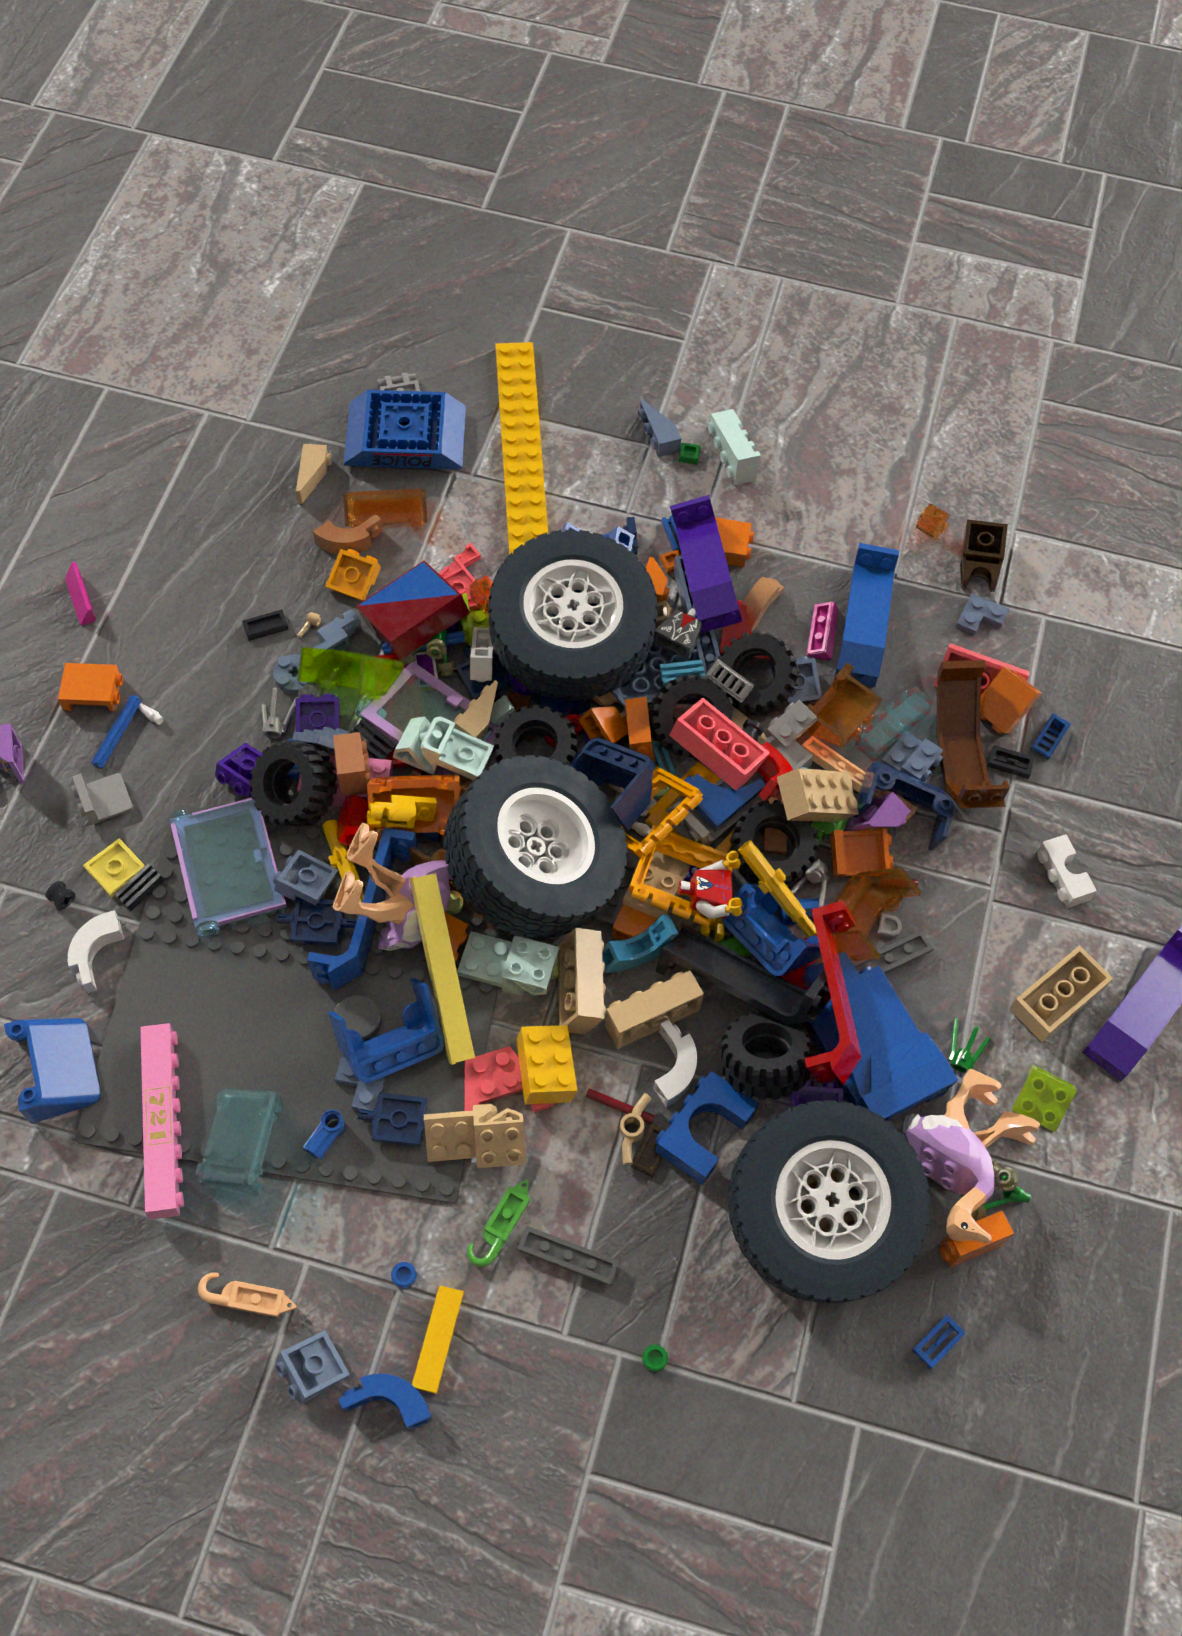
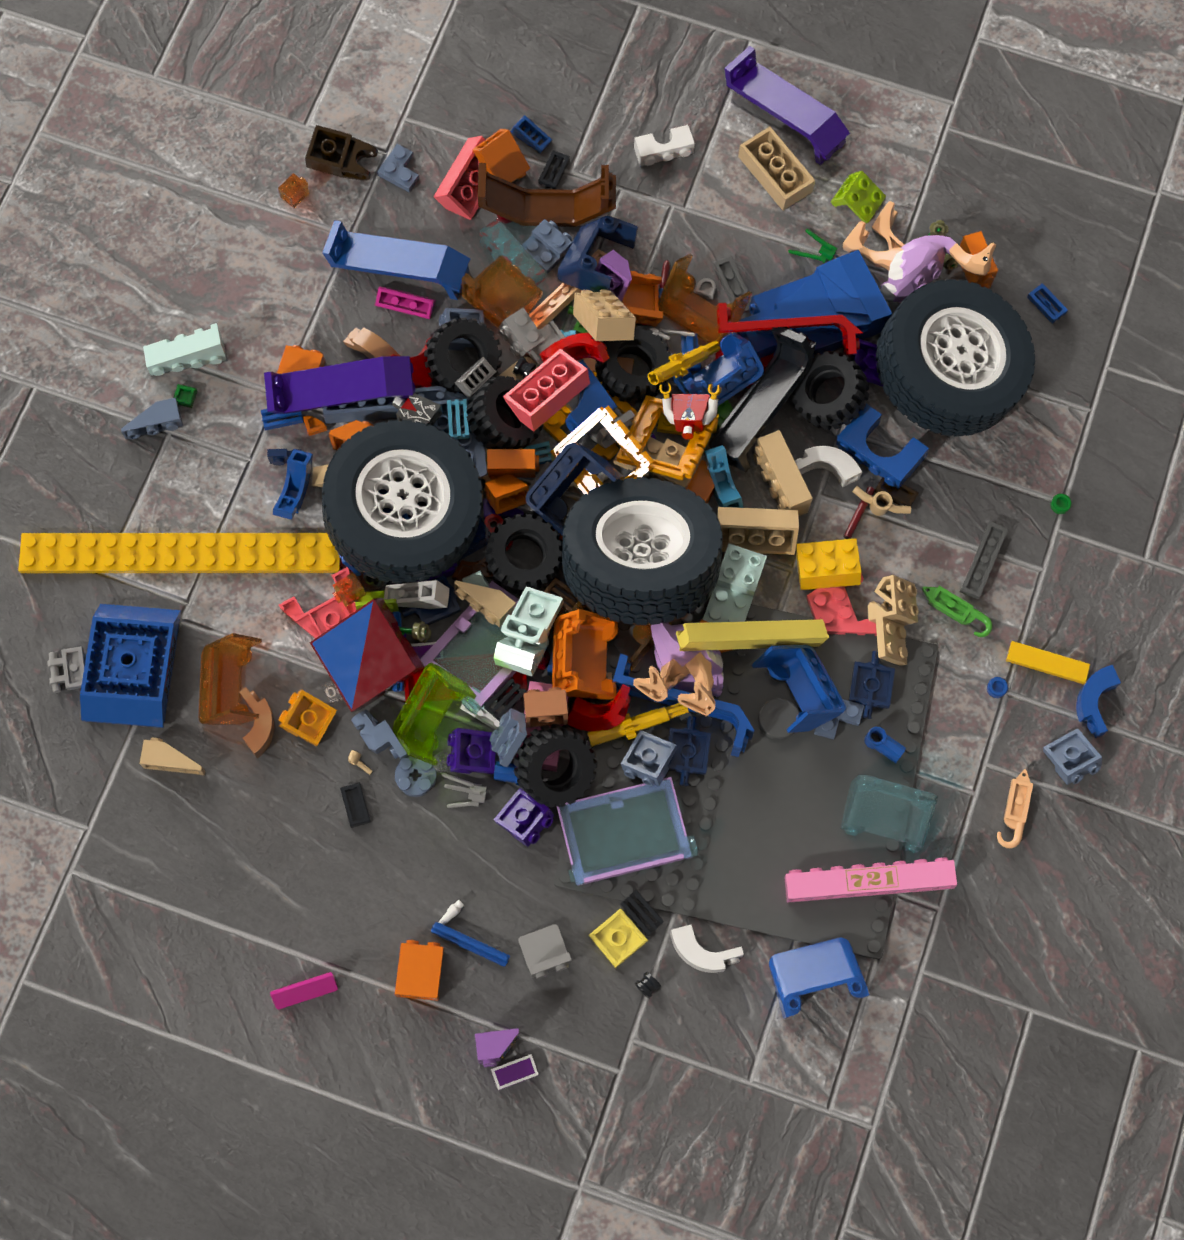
camera: 85 degrees left, 10 degrees up
(401, 811) = (599, 666): yellow plate -> none

